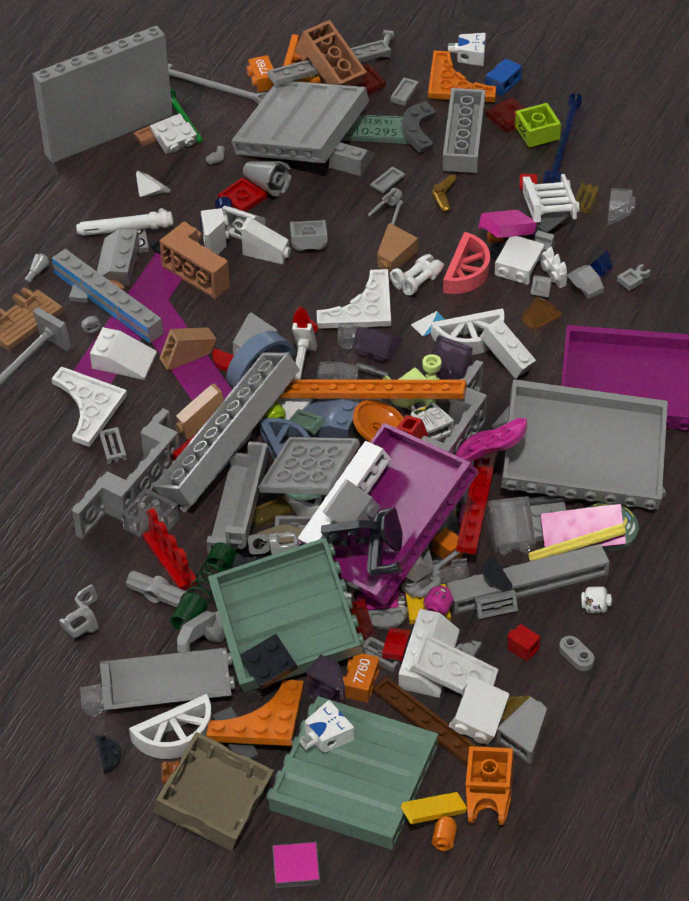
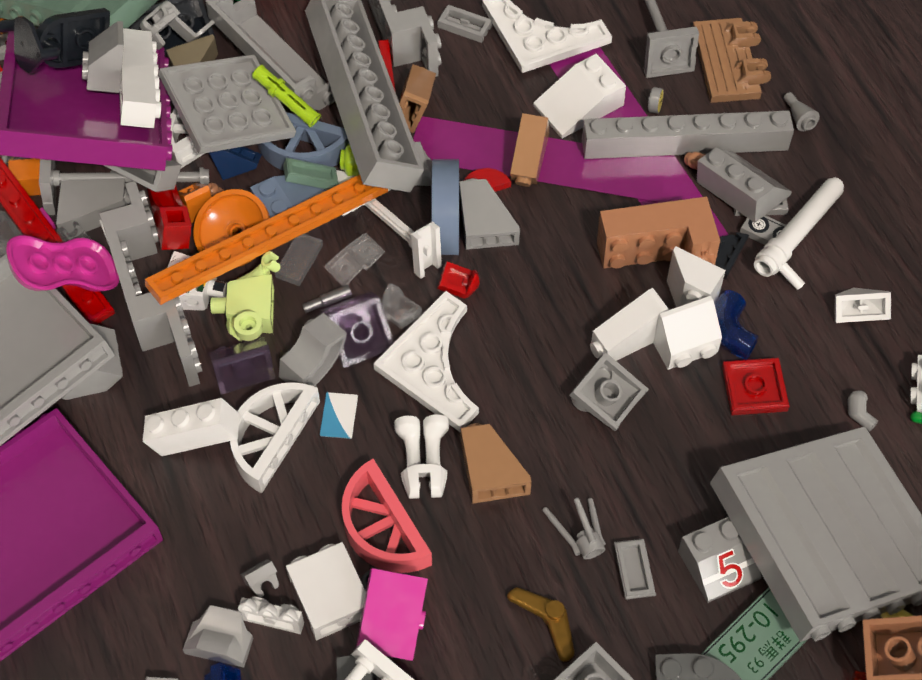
camera: 130 degrees right, 10 degrees up
(268, 175) = (757, 421): light grey cone -> none
(273, 452) = (278, 89): none -> lime pin
(413, 340) = (313, 352): none -> light grey brick
(540, 313) = (222, 542): clear orange slope -> none
(545, 238) = (328, 649): light grey tile -> none

